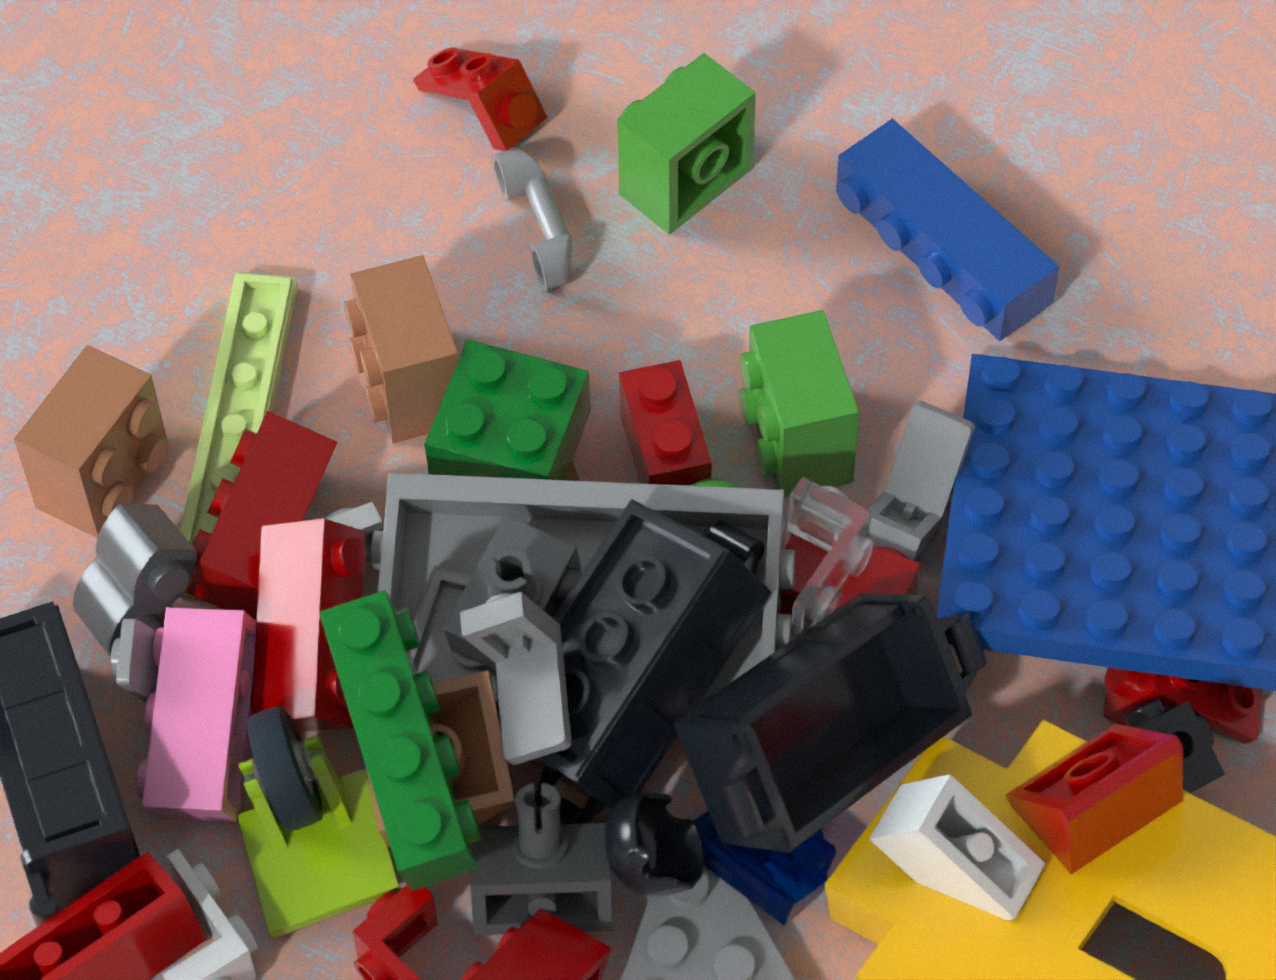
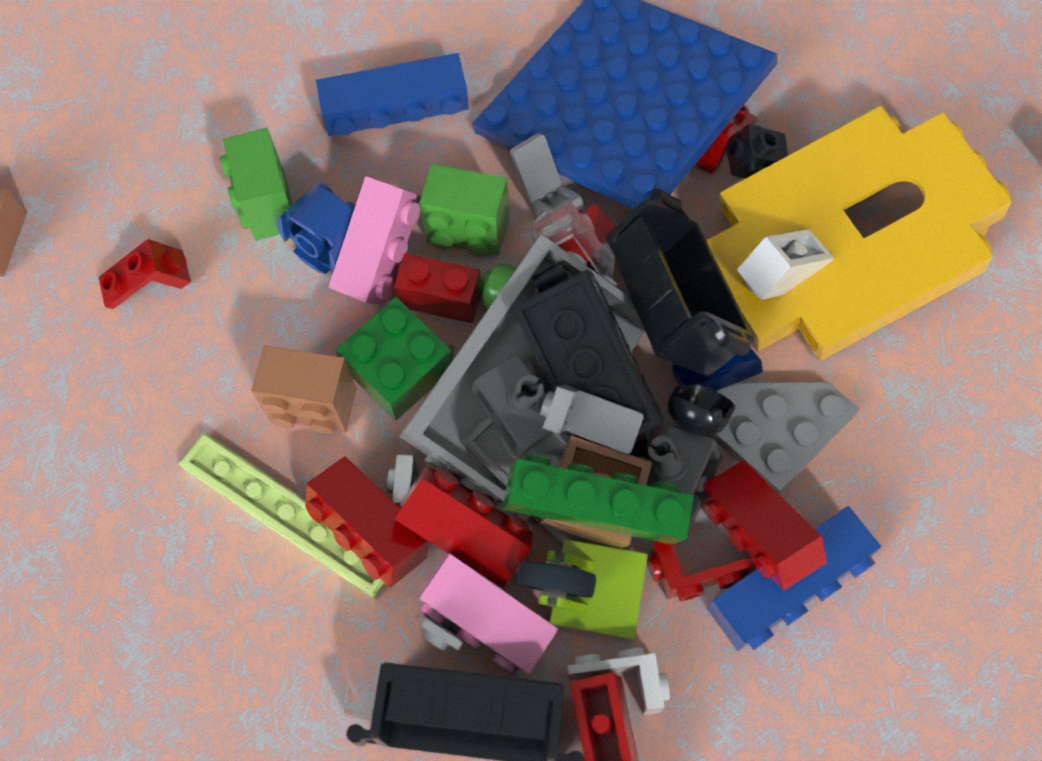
camera: 60 degrees left, 10 degrees up
(92, 440) = (257, 594): nougat brick -> none
(137, 572) = (375, 611): dark grey brick -> none
(520, 176) = (214, 281): light grey bar -> none
(666, 250) = (317, 227): none -> blue brick
(675, 313) = (375, 242): none -> bright pink brick
(1101, 792) = (786, 182): red slope -> none

